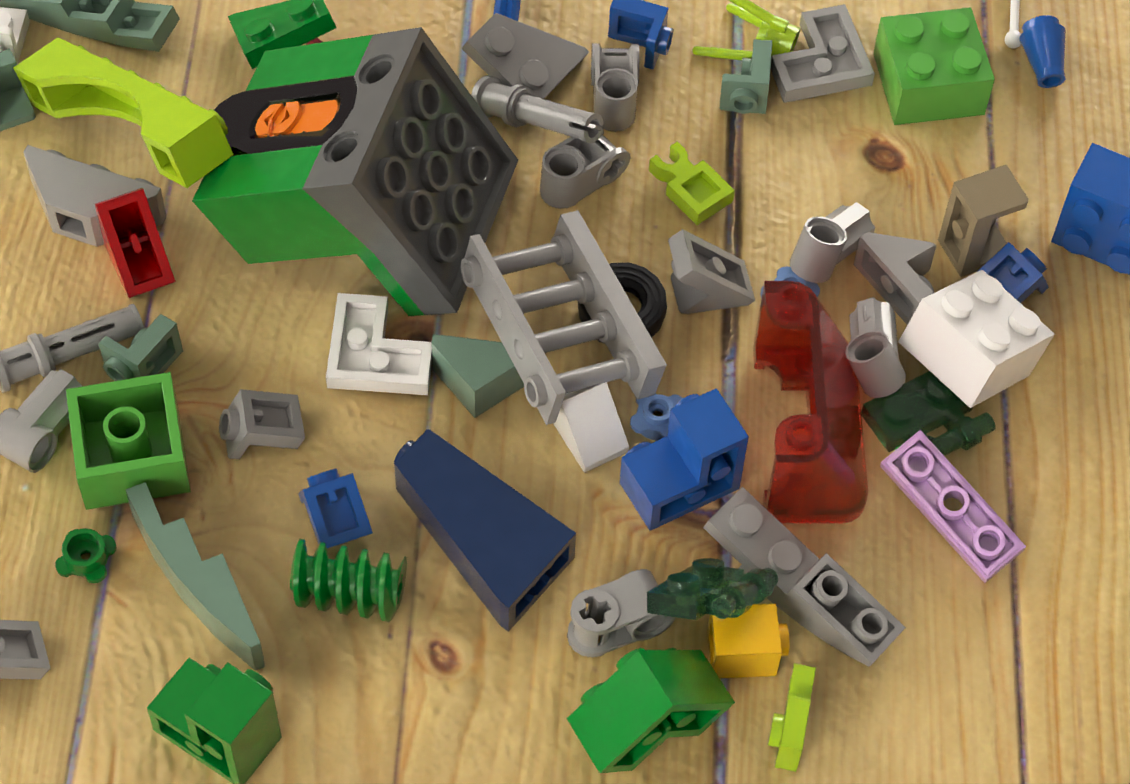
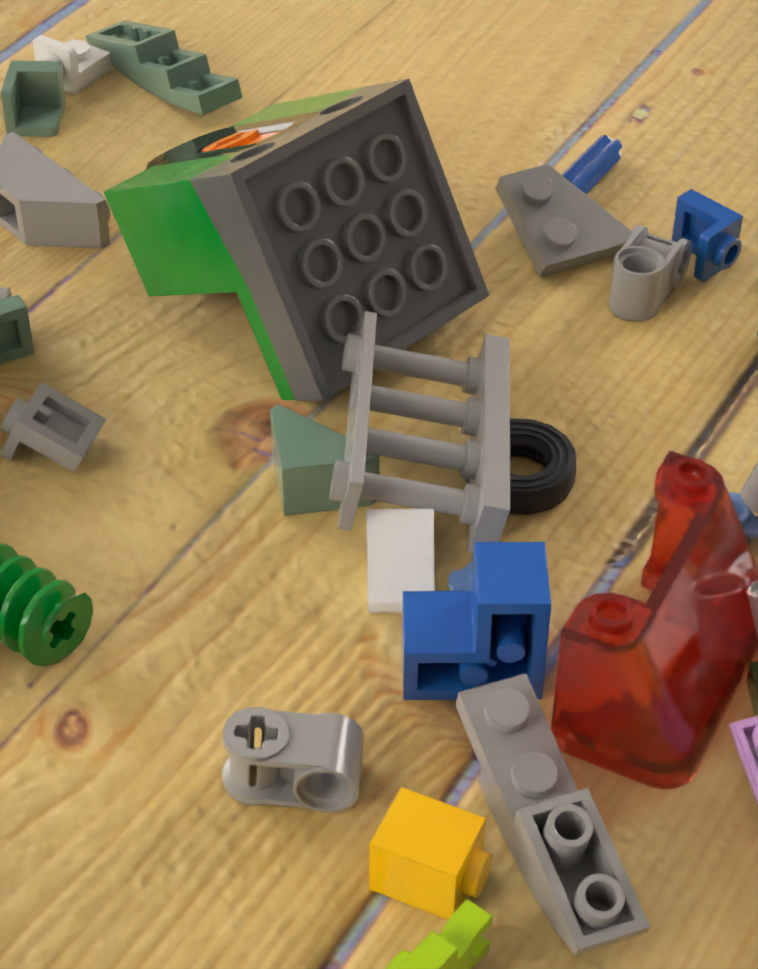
camera: 30 degrees right, 15 degrees down
(134, 243) = (51, 237): red slope -> none
(179, 134) = (122, 121): lime arch -> none
(335, 508) = (60, 529): blue bracket -> none
(365, 359) = (209, 412): white plate -> none
(484, 526) = (209, 617): dark blue slope -> none
(520, 107) = (523, 252): light grey pin -> none
(579, 168) = (552, 325): light grey piece -> none
(647, 702) = (254, 857): green brick -> none
(692, 188) = (675, 388): lime plate -> none
(707, 276) = (627, 458): light grey slope -> none
(711, 590) = (413, 769): clear green plate -> none

